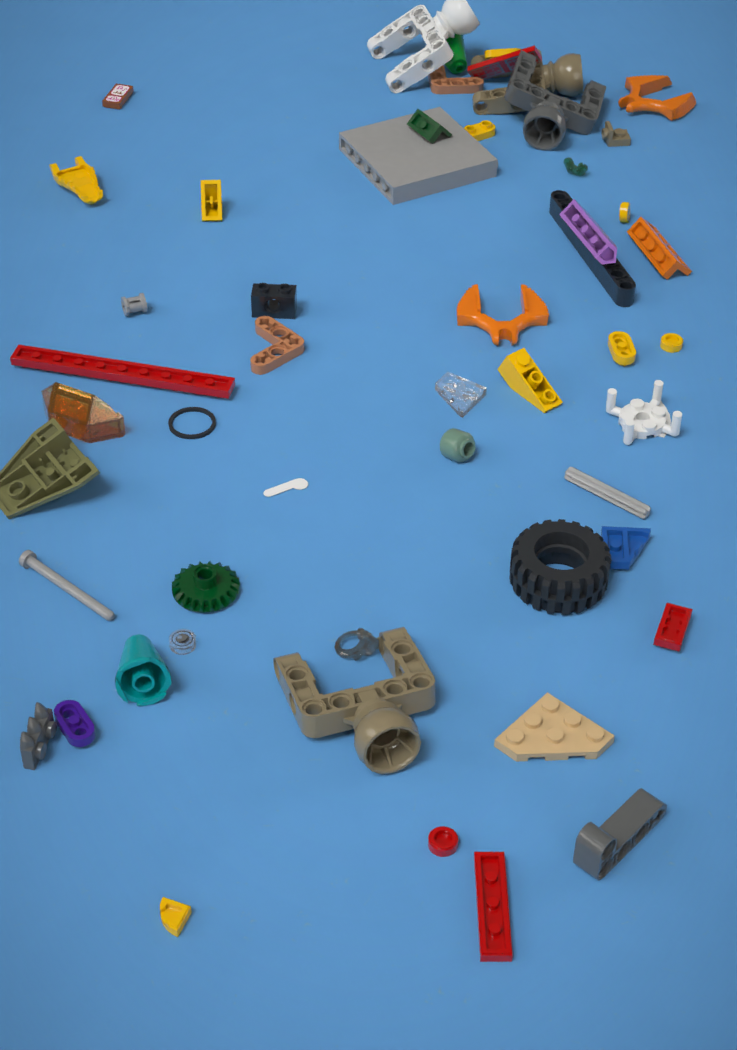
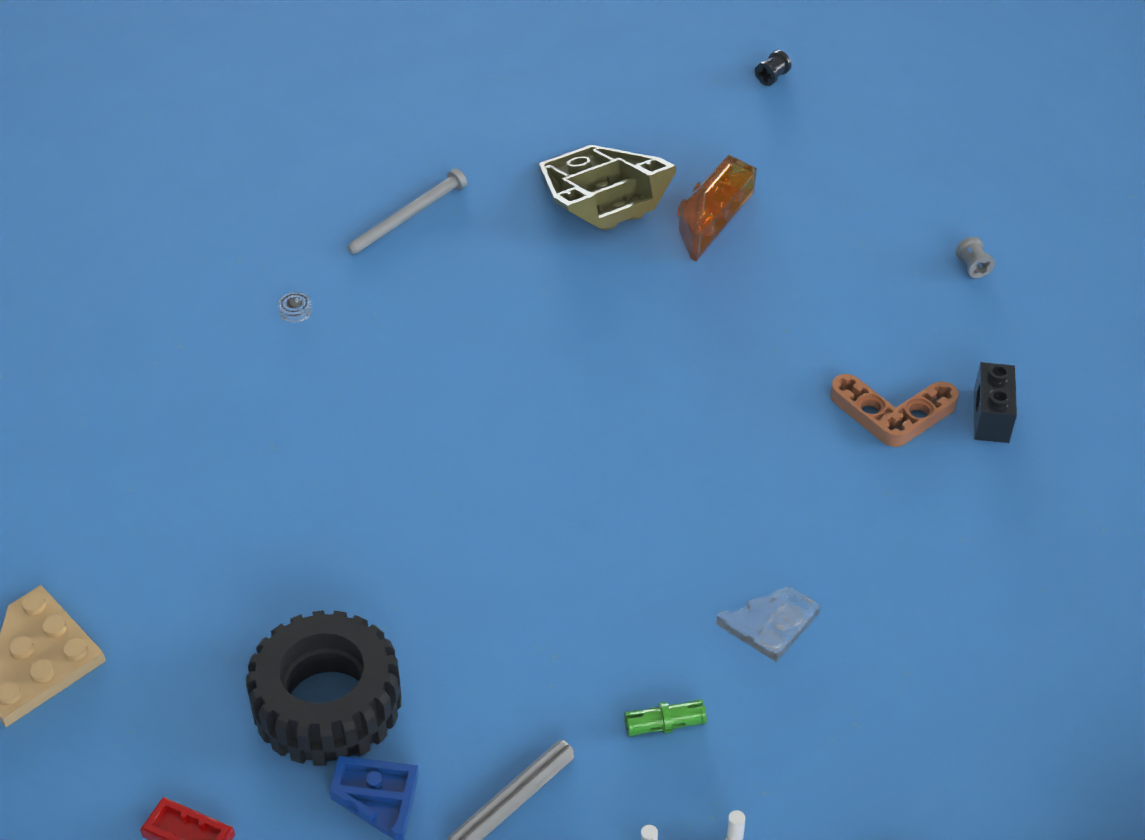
camera: 95 degrees right, 5 degrees up
(39, 731) = (169, 190): dark grey plate -> none
(74, 723) = (186, 220): dark purple plate -> none
(123, 371) = (815, 256): red plate -> none
(141, 672) = (246, 261): teal cone -> none
(192, 436) = (715, 343): black piece -> none
(205, 587) = (385, 328): dark green gear -> none
(298, 484) = (579, 423): white sticker -> none
(366, 645) = (241, 469): clear smoke piece -> none
(378, 713) = (65, 457): dark tan piece -> none
(457, 445) = (632, 600): sand green head -> none
(528, 381) = (796, 719): yellow slope -> none
(533, 314) = (1003, 661): orange piece -> none
(537, 434) = (665, 717): none -> bright green pin

